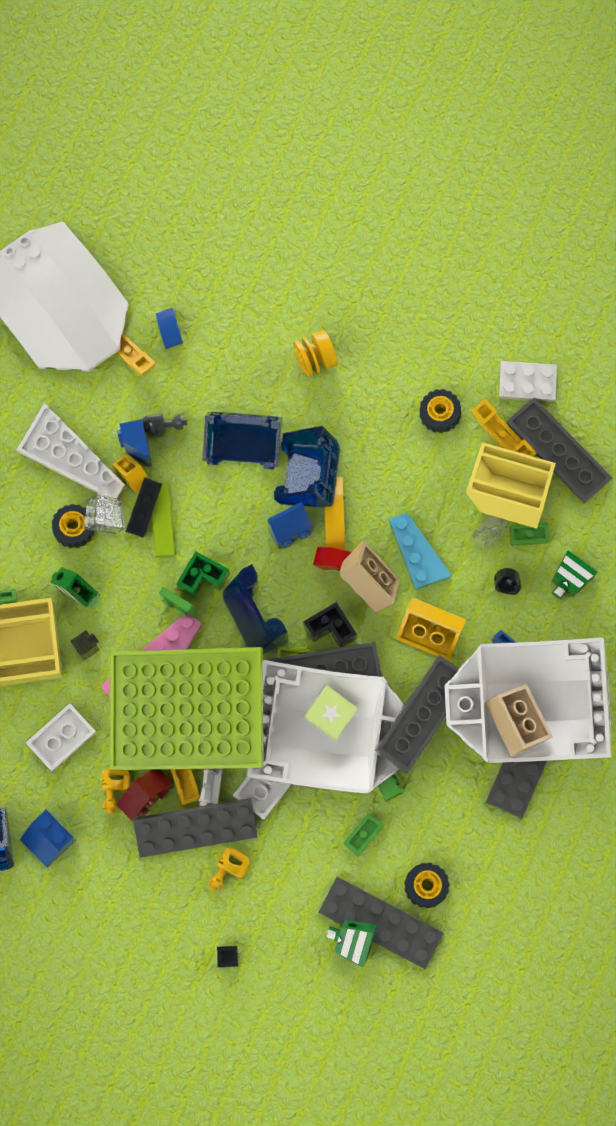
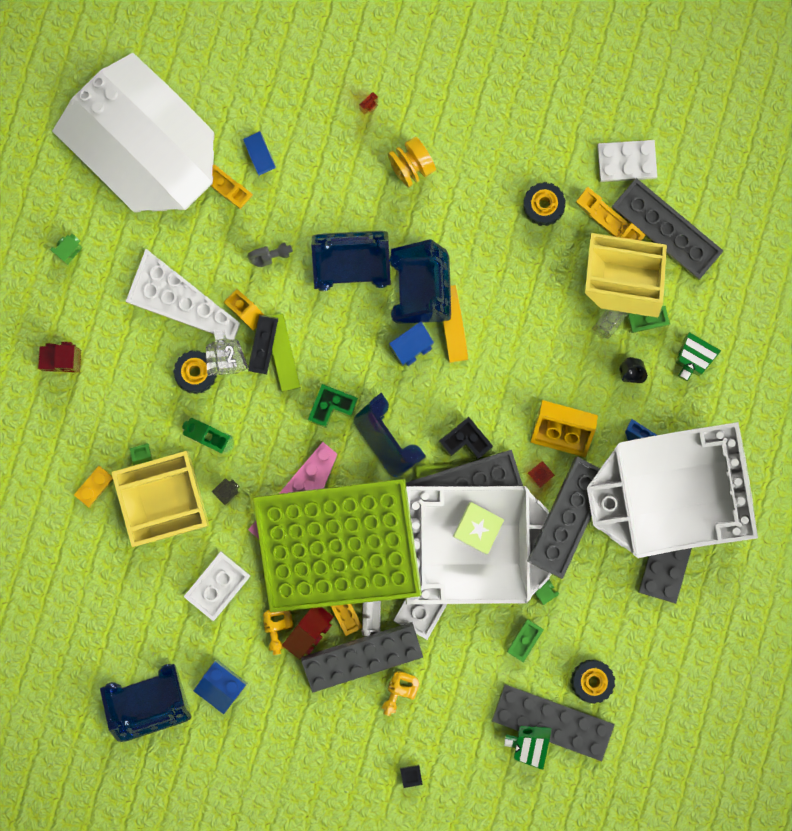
camera: 15 degrees left, 10 degrees up
(134, 439) = (243, 277): blue slope -> none
(183, 607) = (318, 441): bright green plate -> none
(282, 295) = (369, 104): none -> clear red plate
(330, 558) = (466, 372): red brick -> none
(370, 577) = (498, 386): tan slope -> none
(401, 671) = (541, 474): none -> clear red plate
(420, 558) = (540, 353): medium azure wing -> none
(518, 720) = (663, 512): tan slope -> none

